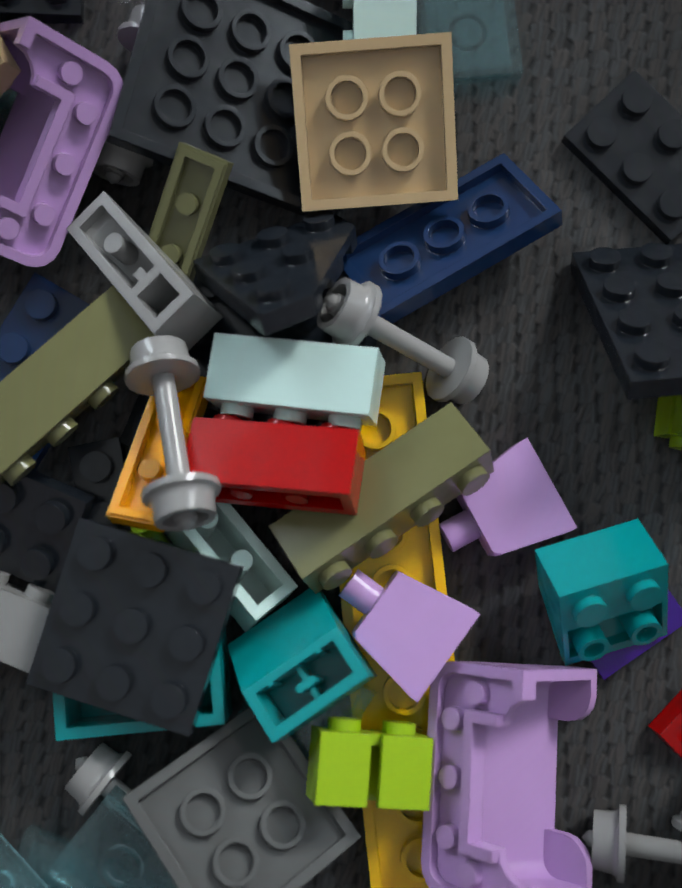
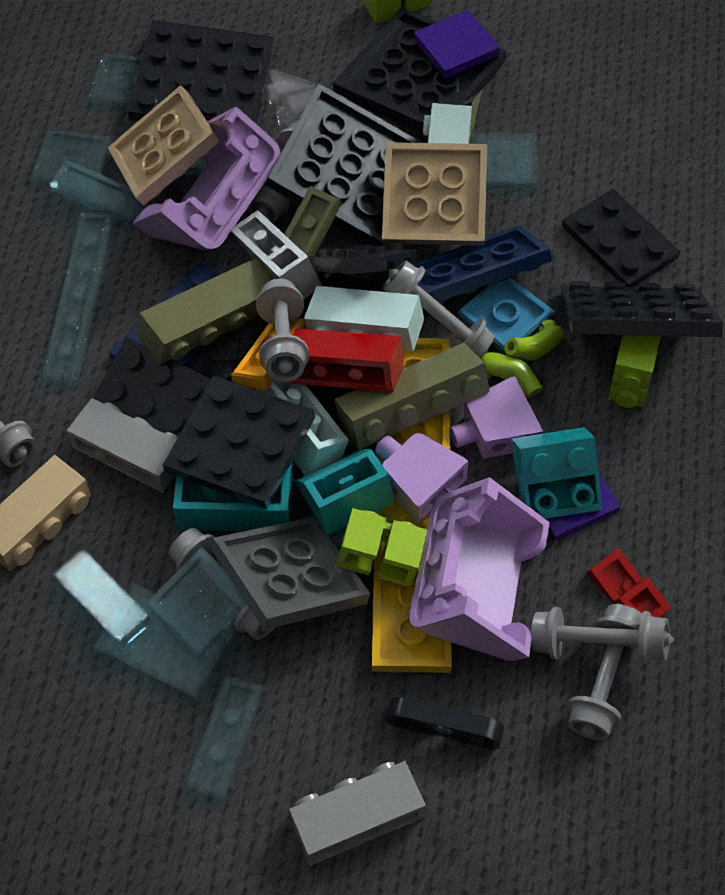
camera: 10 degrees right, 25 degrees down
(500, 312) = (508, 311): none -> dark azure tile
(515, 409) = (507, 367): none -> lime arm
(547, 363) = (537, 345): none -> lime arm

